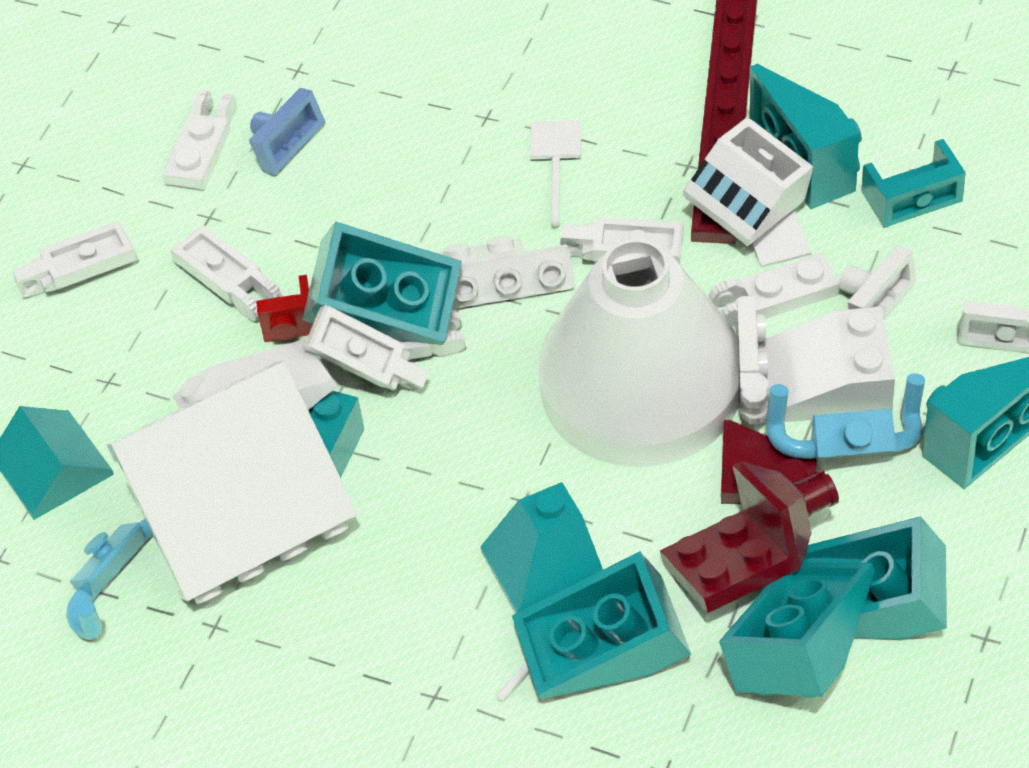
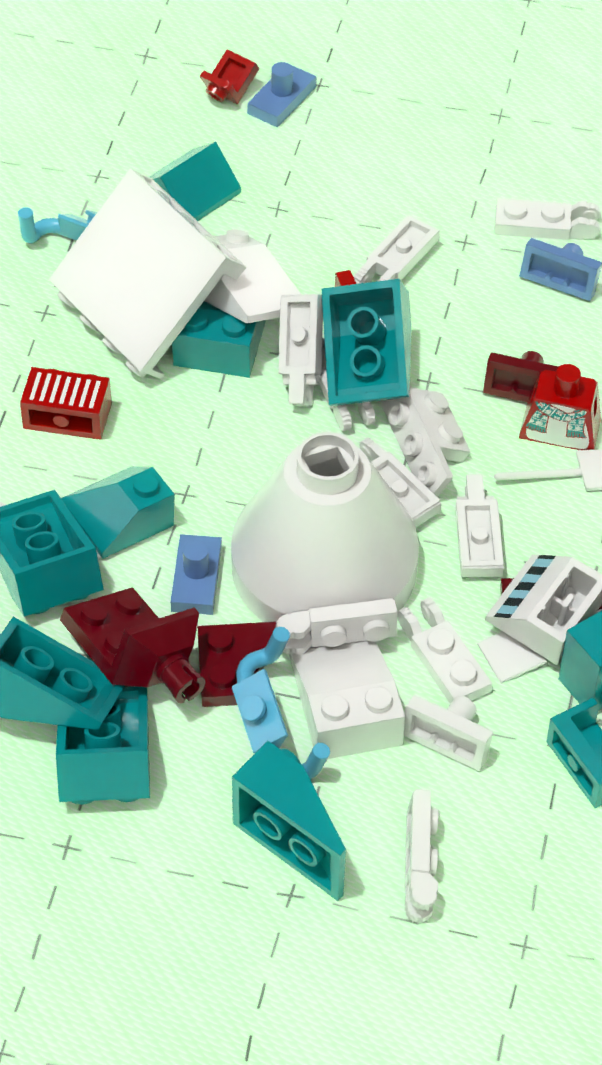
camera: 75 degrees right, 0 degrees up
(75, 260) = (394, 161): white hinge -> none
(380, 597) = (66, 403): none -> red brick
(436, 179) = (514, 376): none -> dark red tile
(492, 135) = (563, 410): none -> red torso
(536, 310) = (410, 491): none -> white hinge
(644, 492) = (196, 573): none -> medium blue tile

